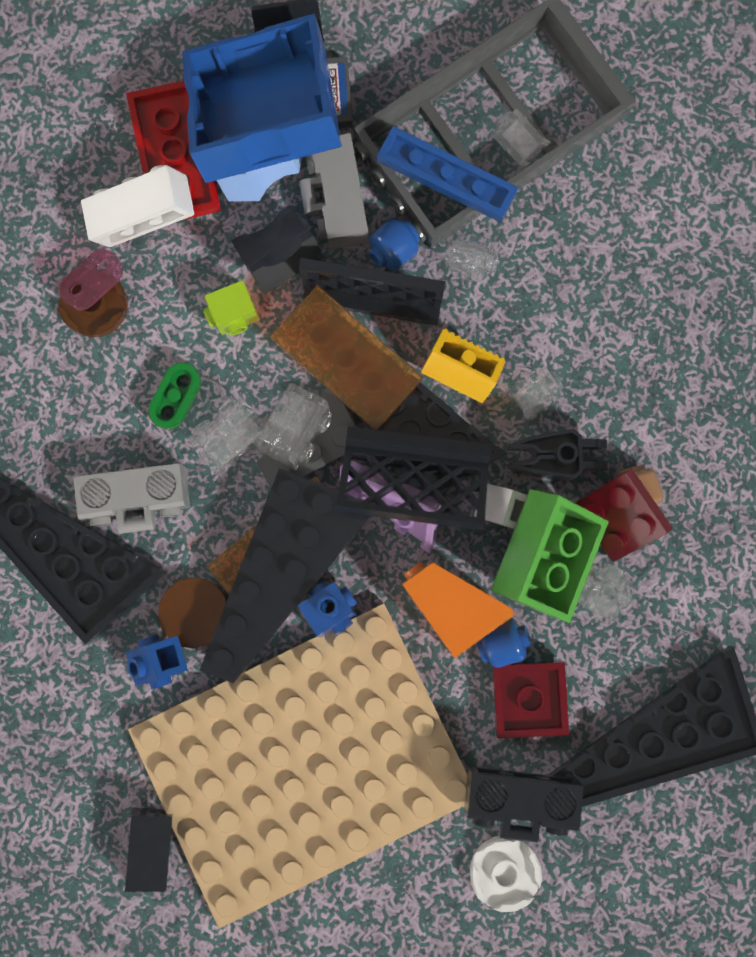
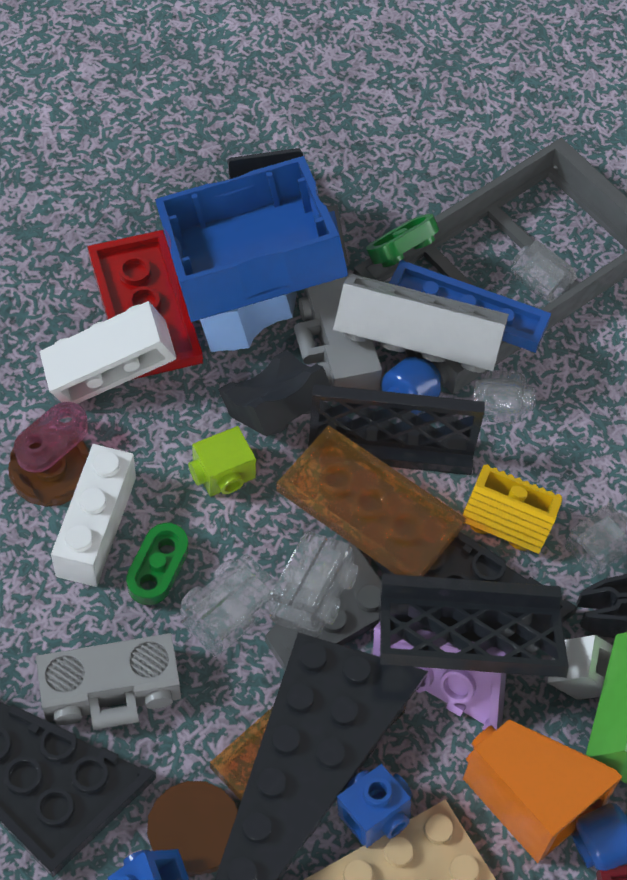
camera: 10 degrees left, 25 degrees down
(124, 352) = (94, 515): none -> white brick
(401, 193) = (420, 323): none -> light grey brick
(404, 99) = (412, 234): none -> green plate

